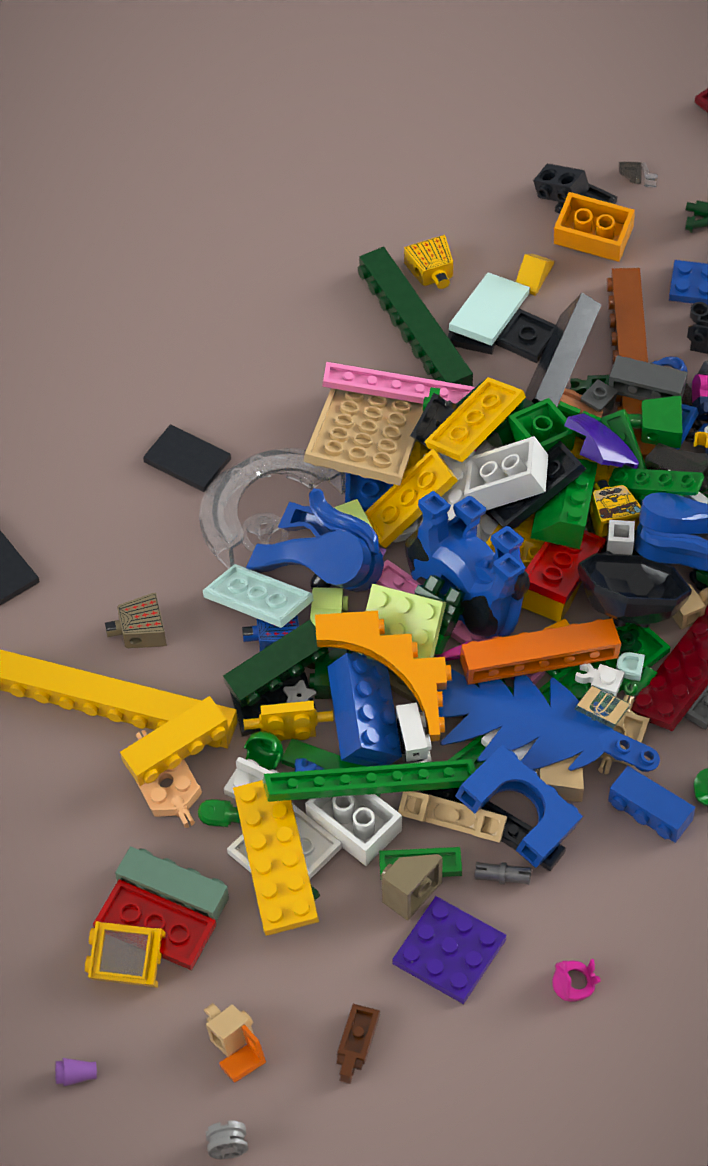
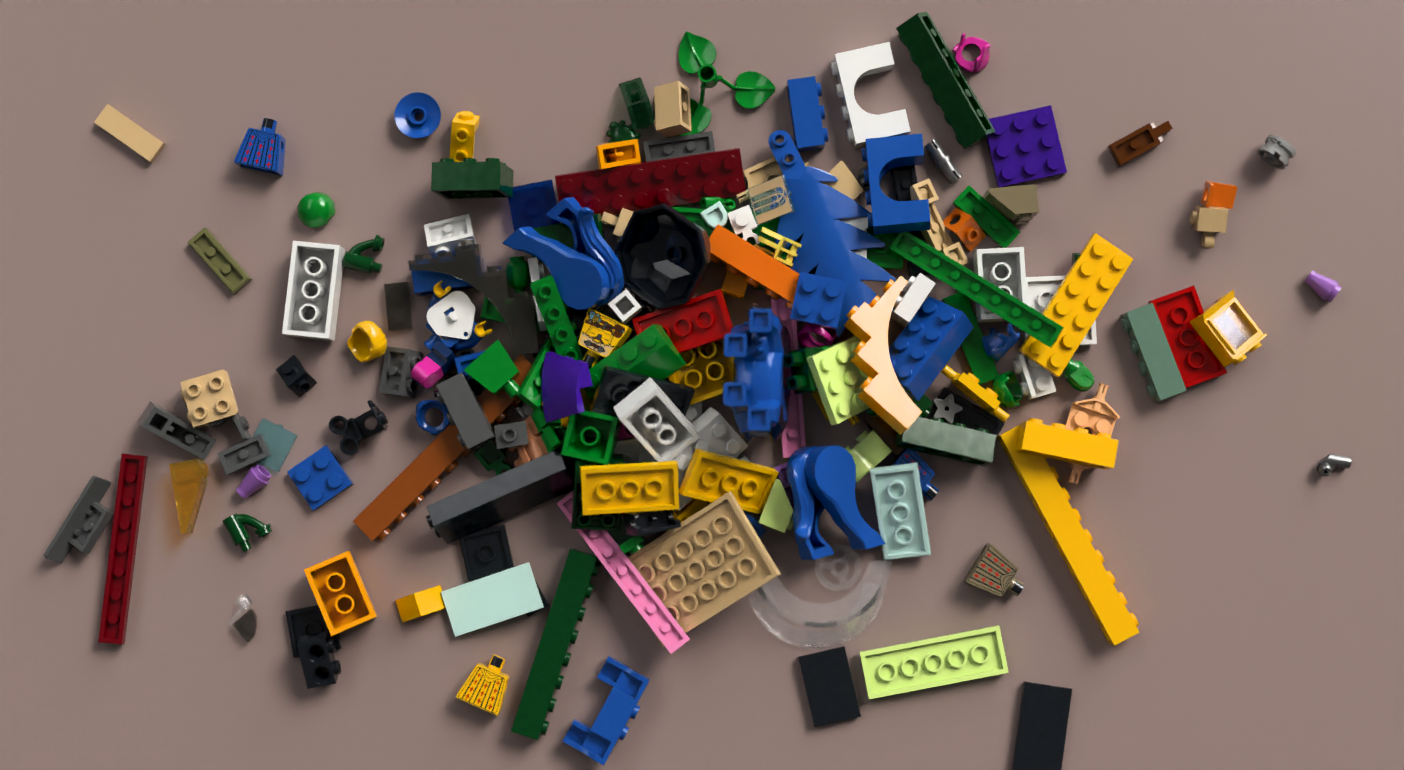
camera: 135 degrees left, 30 degrees up
(123, 533) = (933, 662): none -> yellowish green plate
(324, 316) = (616, 711): none -> blue bracket
(428, 835) = (965, 229): none -> orange bracket
(483, 652) = (818, 300): none -> blue plate
(558, 676) = (780, 247): none -> light yellow arm
(572, 930) = (945, 80): none -> dark green brick
(598, 837) = (852, 67): none -> white arch

